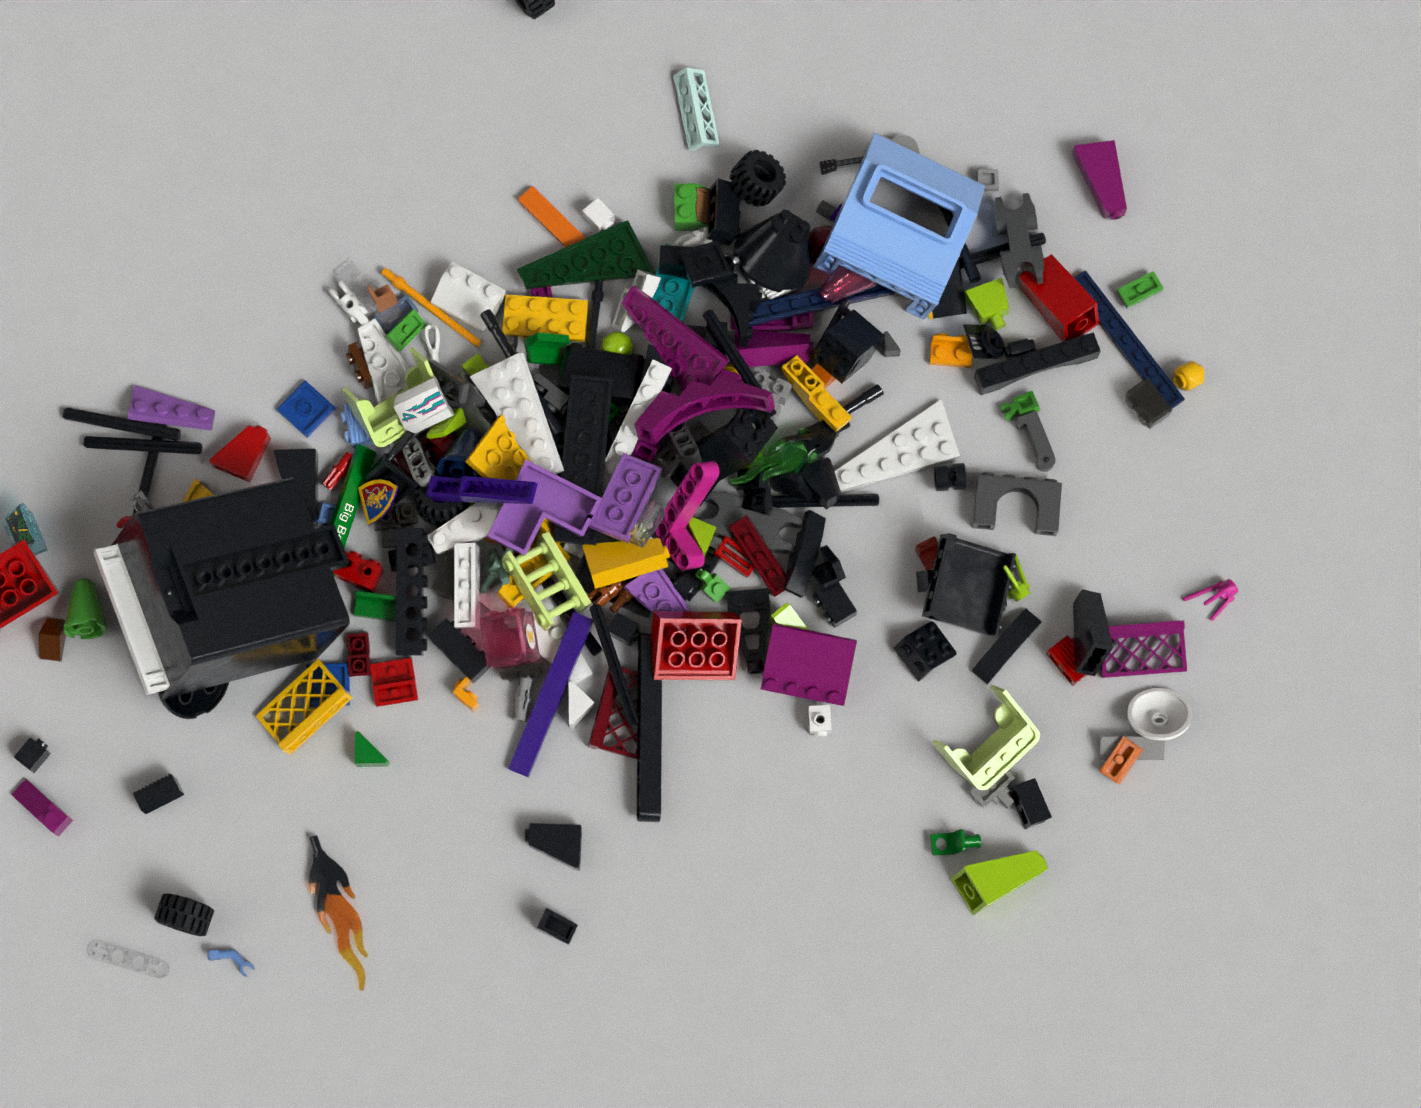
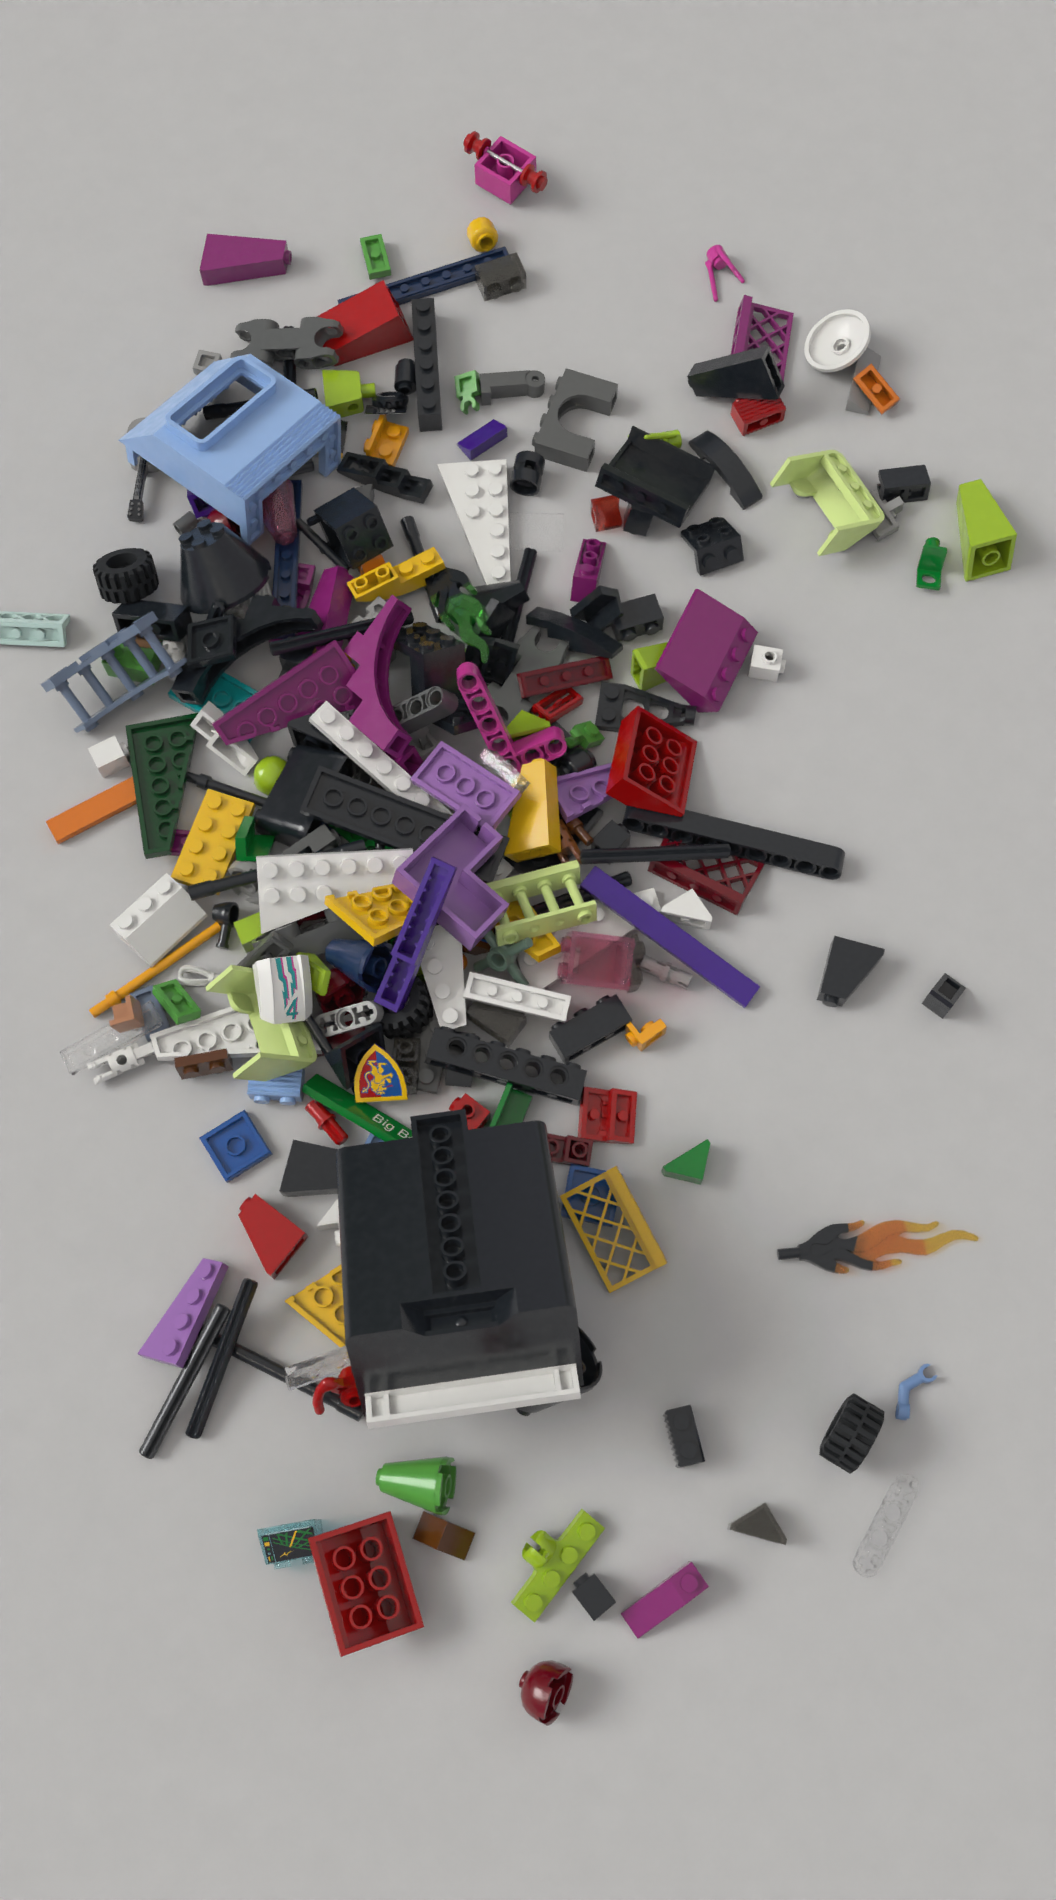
camera: 75 degrees left, 5 degrees down
(51, 722) = (554, 1562): none -> lime plate
(107, 864) = (760, 1524): none -> clear smoke slope
(488, 347) = (225, 914): none -> black bar
(680, 184) = (105, 651): none -> sand blue fence
(870, 551) = (587, 569): none -> magenta slope
(916, 359) = (384, 477): none -> black slope
(978, 431) = (483, 439): none -> dark purple slope
(1263, 376) = (504, 167): none -> dark pink brick

